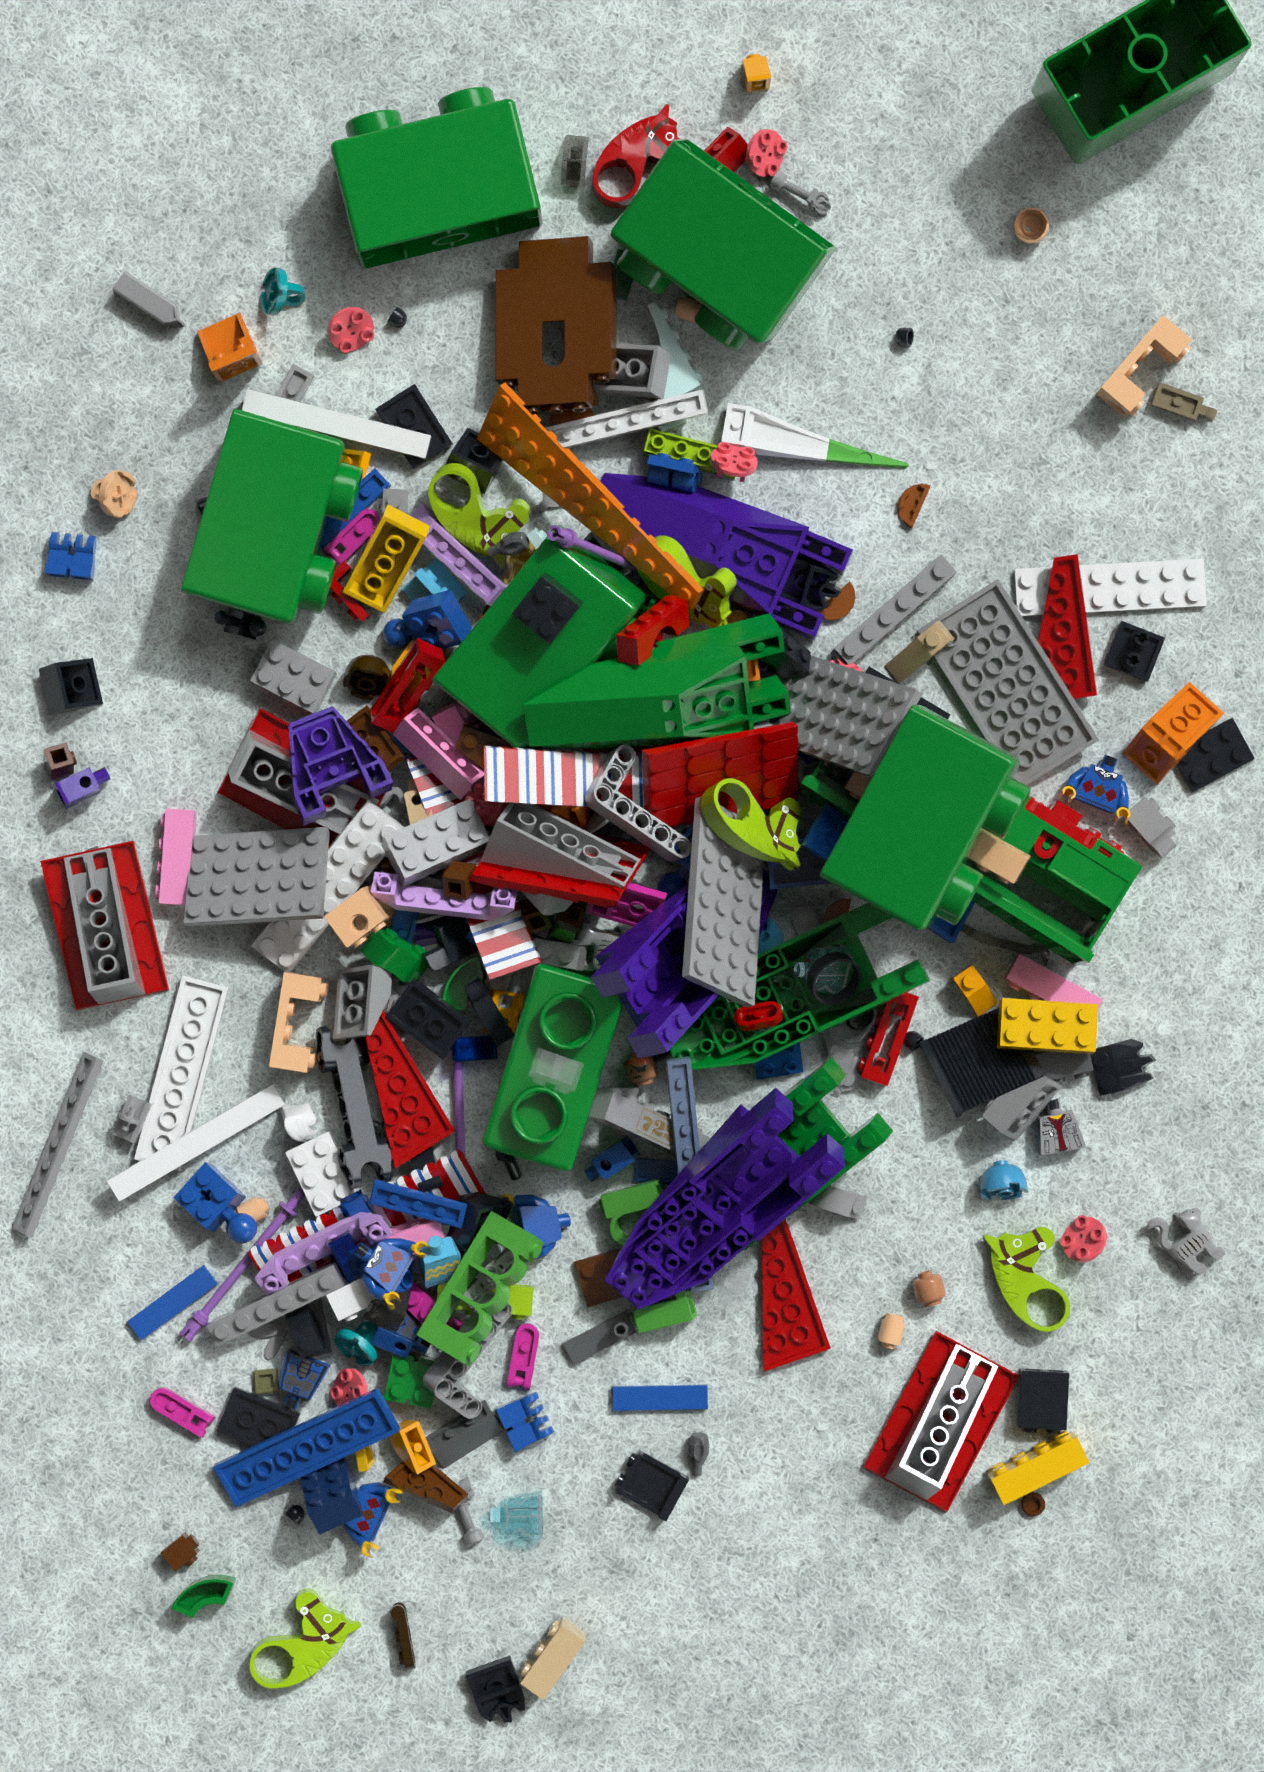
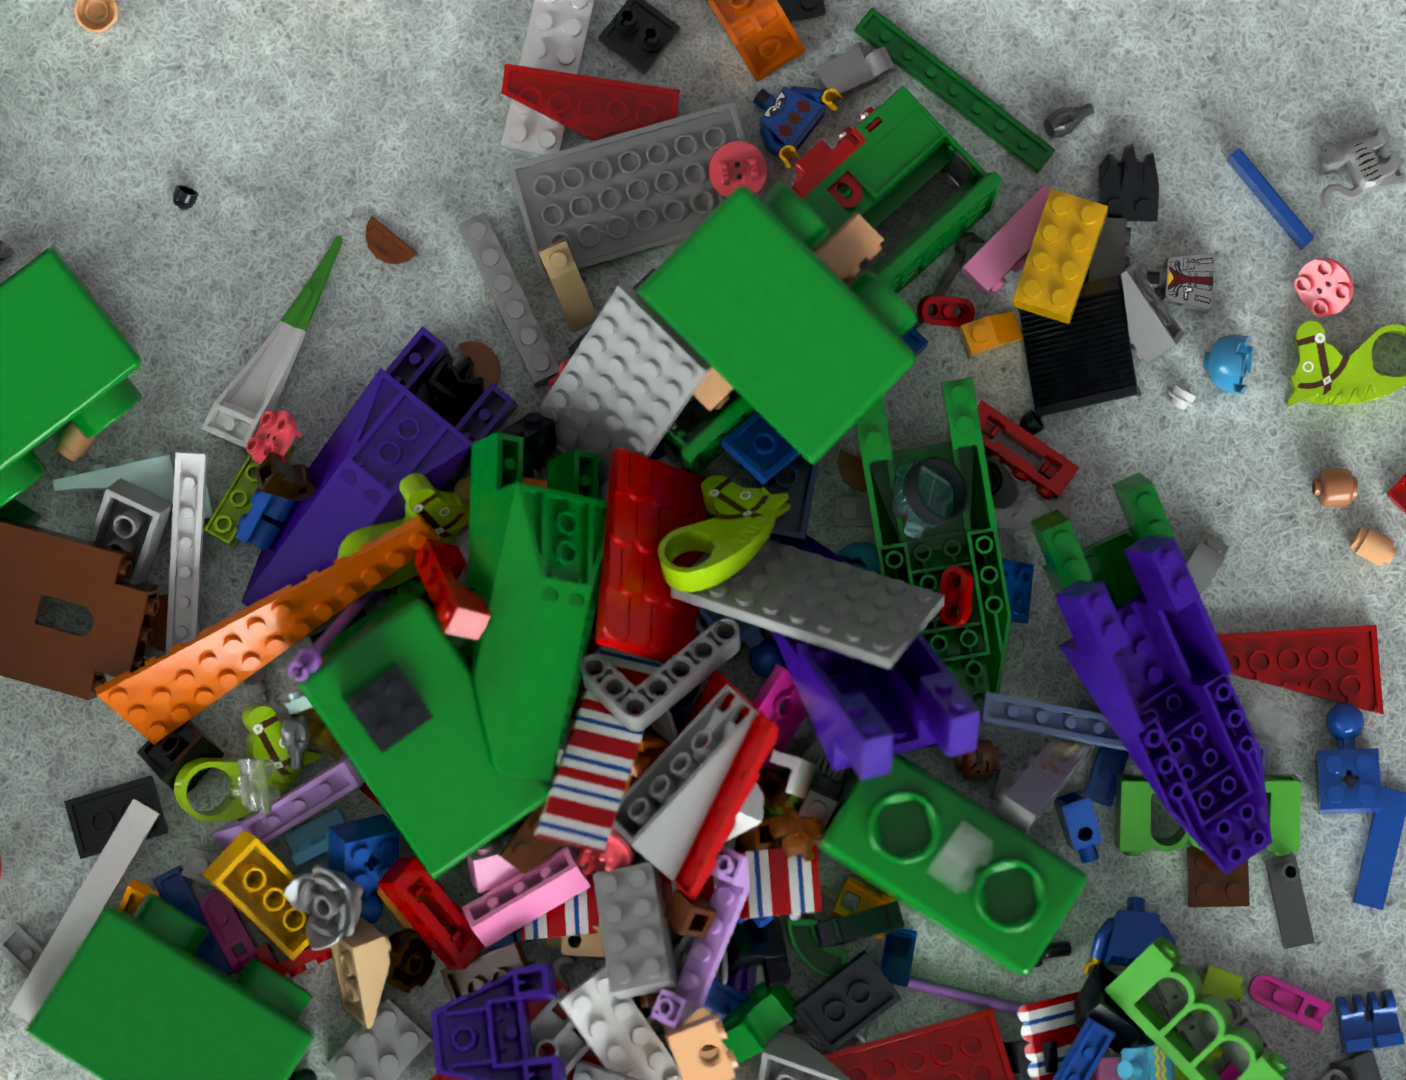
camera: 80 degrees left, 5 degrees down
(352, 643) = (361, 970): none -> tan slope
(393, 607) = (330, 903): none -> light grey brick
(464, 523) = (253, 785): none -> clear hips
(546, 947) = (800, 830): none -> clear orange hips
(589, 935) = (801, 773): none -> white panel
(704, 478) = (284, 479): none -> dark brown leg
(747, 1344) = (1334, 797): none -> blue brick
(966, 1151) = (1181, 397): none -> white plate
(980, 949) = (944, 310): none -> red plate
(1051, 767) = (723, 172): none -> coral plate
(1142, 1179) = (1270, 198): none -> blue tile
(1159, 909) = (955, 90): none -> green tile
(1160, 1003) = (1066, 120): none -> dark grey piece

